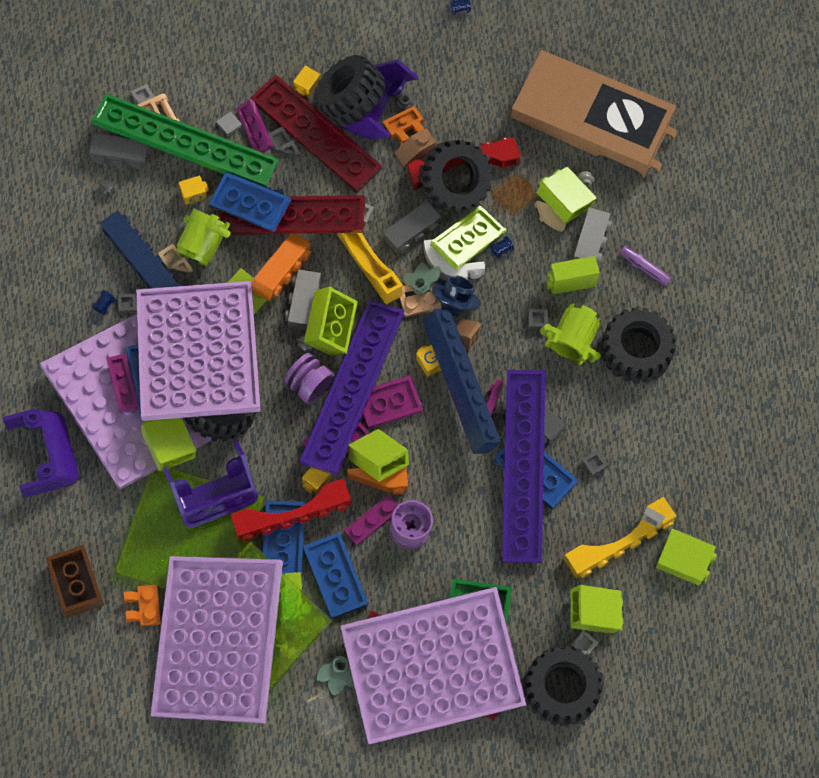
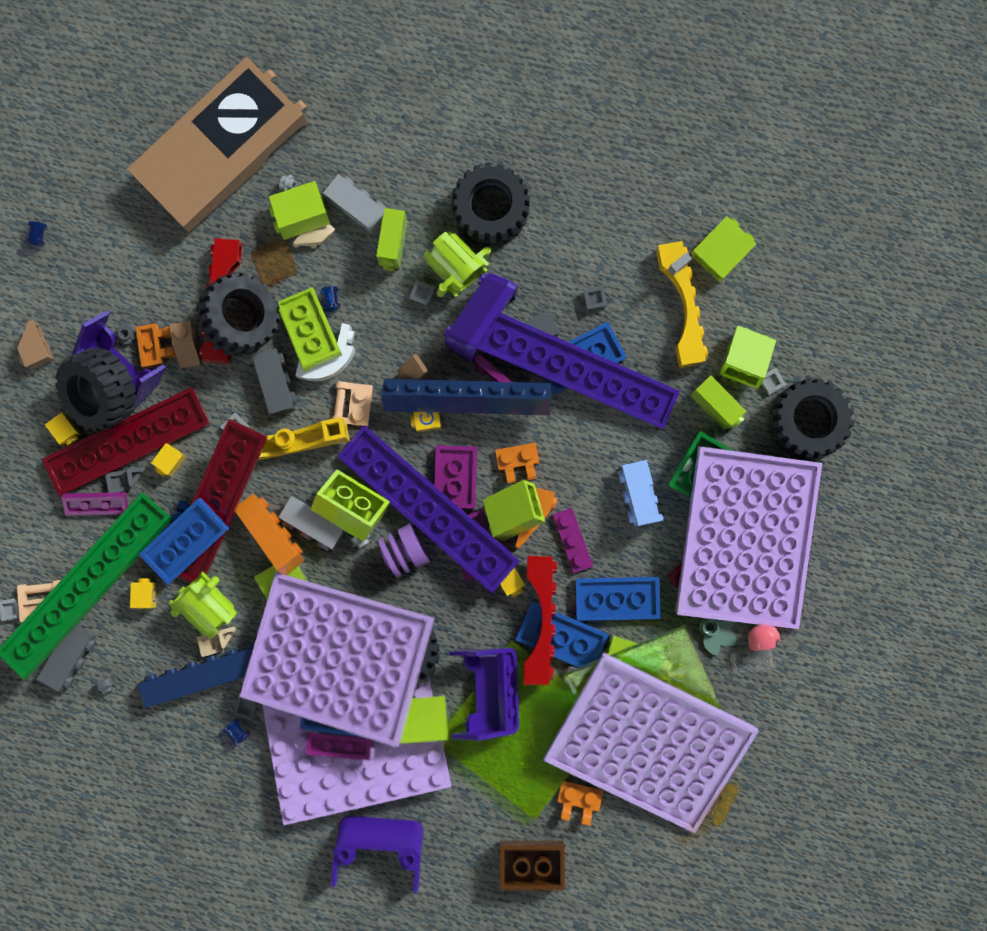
camera: 65 degrees left, 15 degrees up
(187, 730) = (723, 810): none -> clear yellow plate
(229, 124) = (79, 529): light grey tile -> none
(312, 169) = (168, 460): none -> yellow brick
(349, 710) = (763, 637): none -> coral hair
(365, 36) = (33, 347): none -> medium nougat slope
(366, 250) = (284, 439): none -> yellow plate
(406, 514) = (596, 493): medium lavender wheel -> none
(422, 277) = (333, 393): sand green plate -> none
(427, 447) = (517, 457): none -> orange plate
(435, 560) = (639, 494): none -> light blue wedge
(456, 295) = (369, 365): dark blue helmet -> none
(537, 365) = (479, 315): none -> dark purple windscreen
(543, 597) = (719, 404): none -> lime brick
(638, 261) = (401, 165): medium lavender pin -> none

